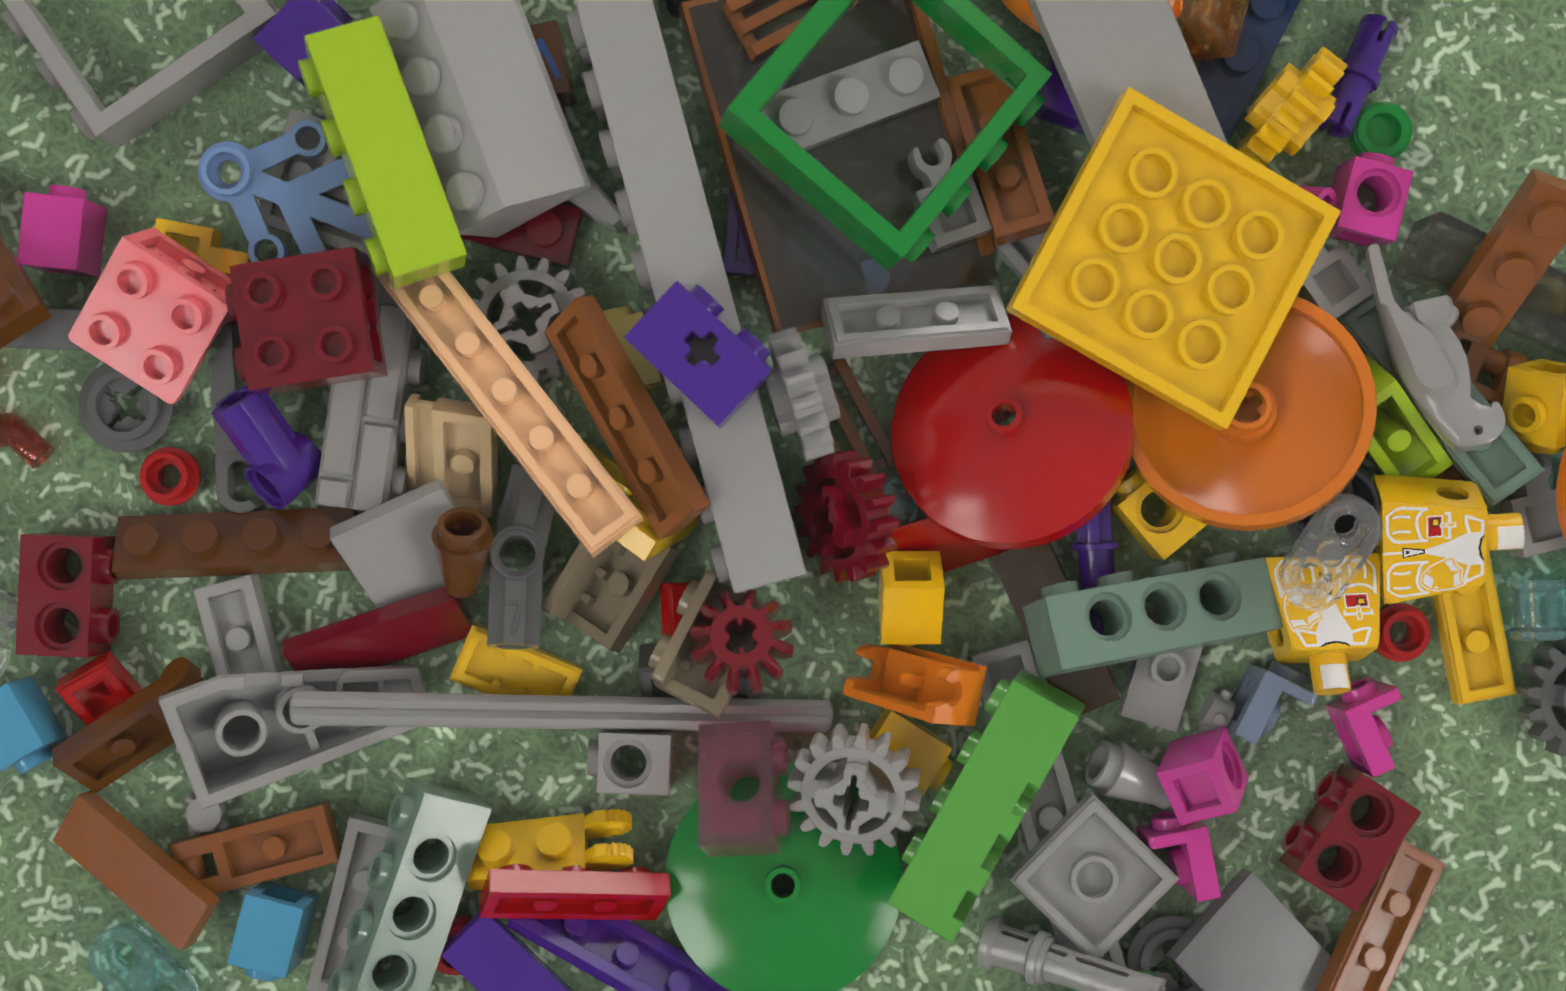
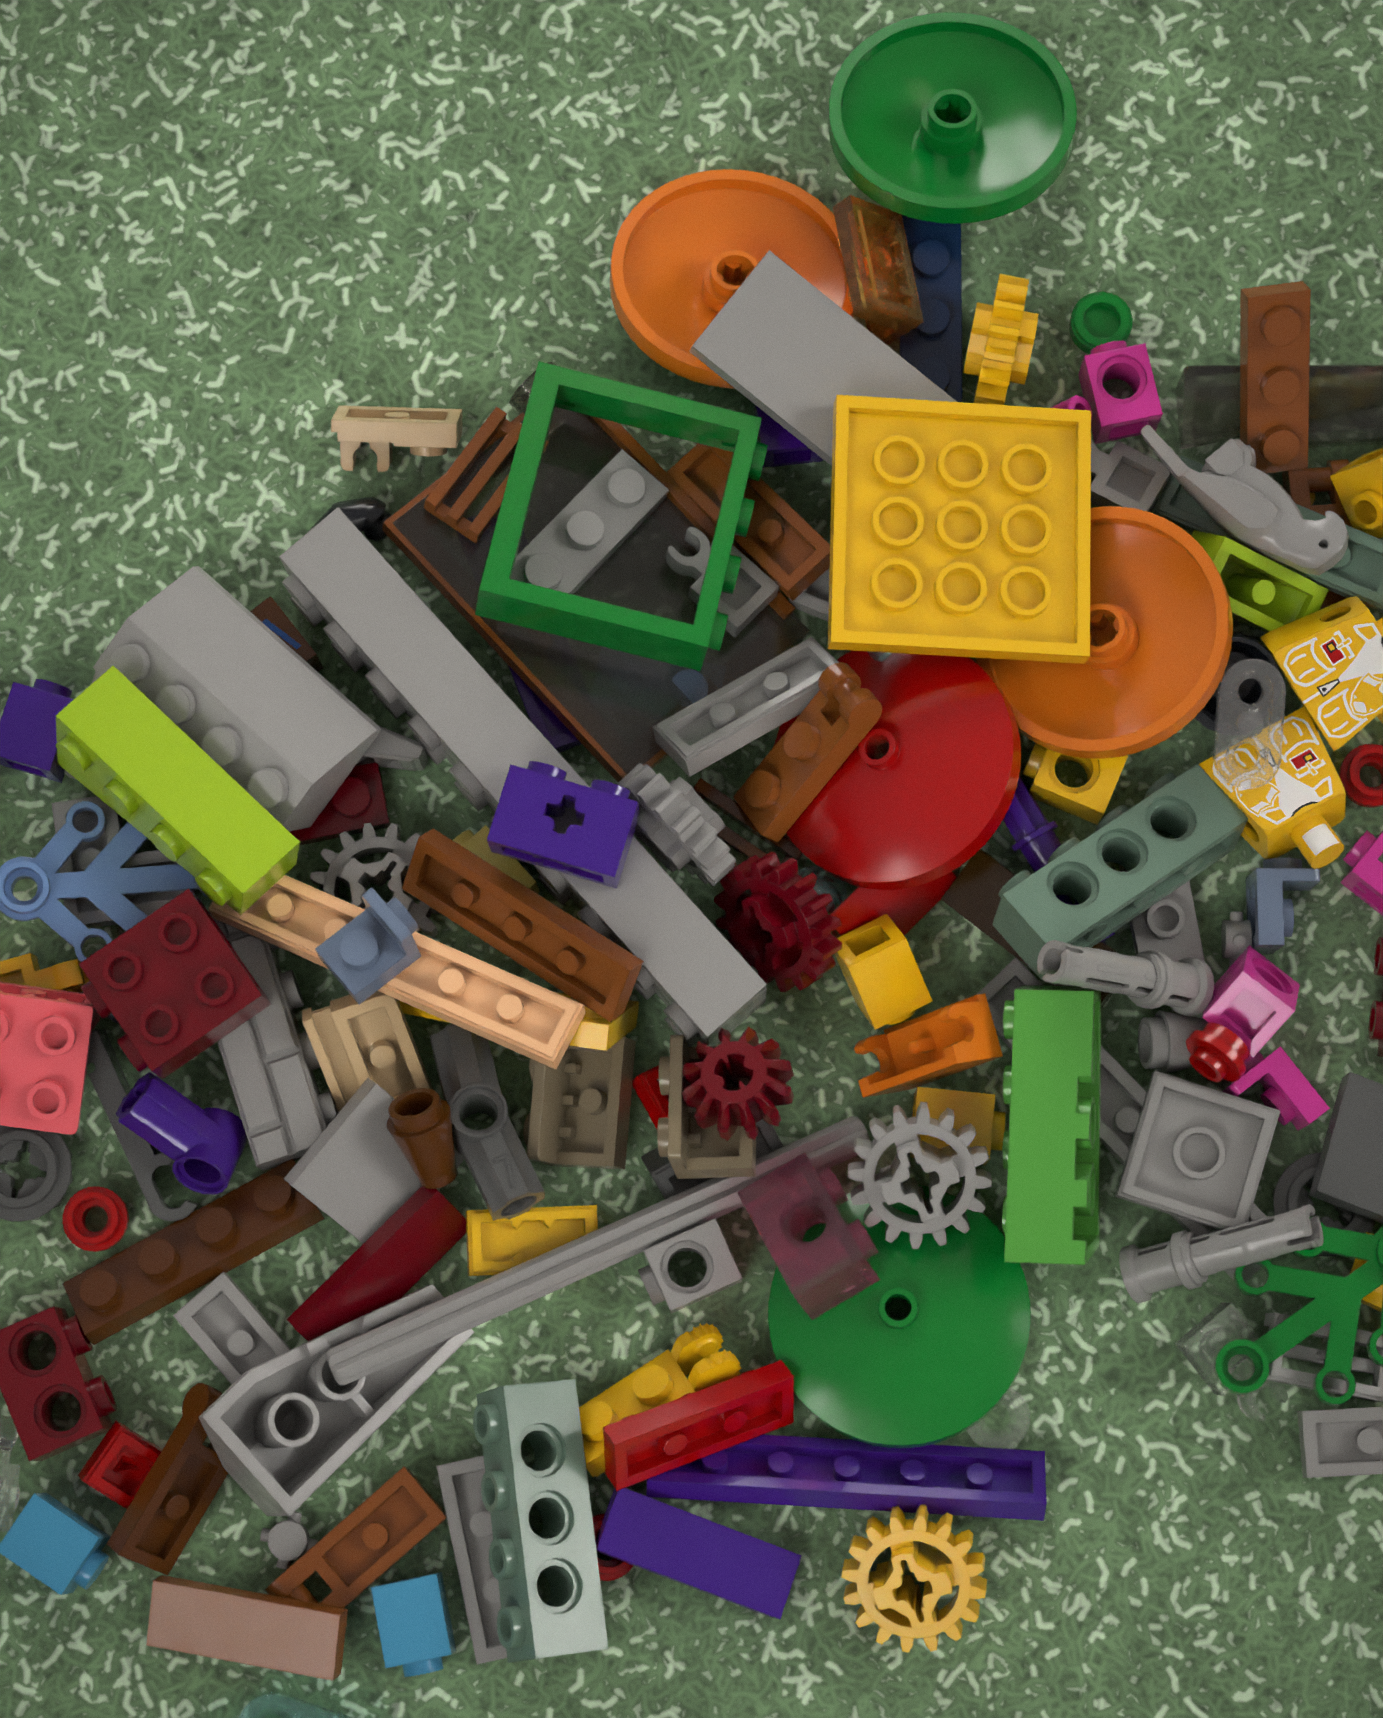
camera: 20 degrees left, 10 degrees down
(485, 375) = (371, 947): none -> sand blue bracket
(945, 386) = (809, 752): none -> dark orange plate
(1126, 719) = (1146, 979): none -> light grey pin
(1153, 808) = (1217, 1053): none -> red plate
(1361, 74) = (1050, 283): dark purple pin -> none

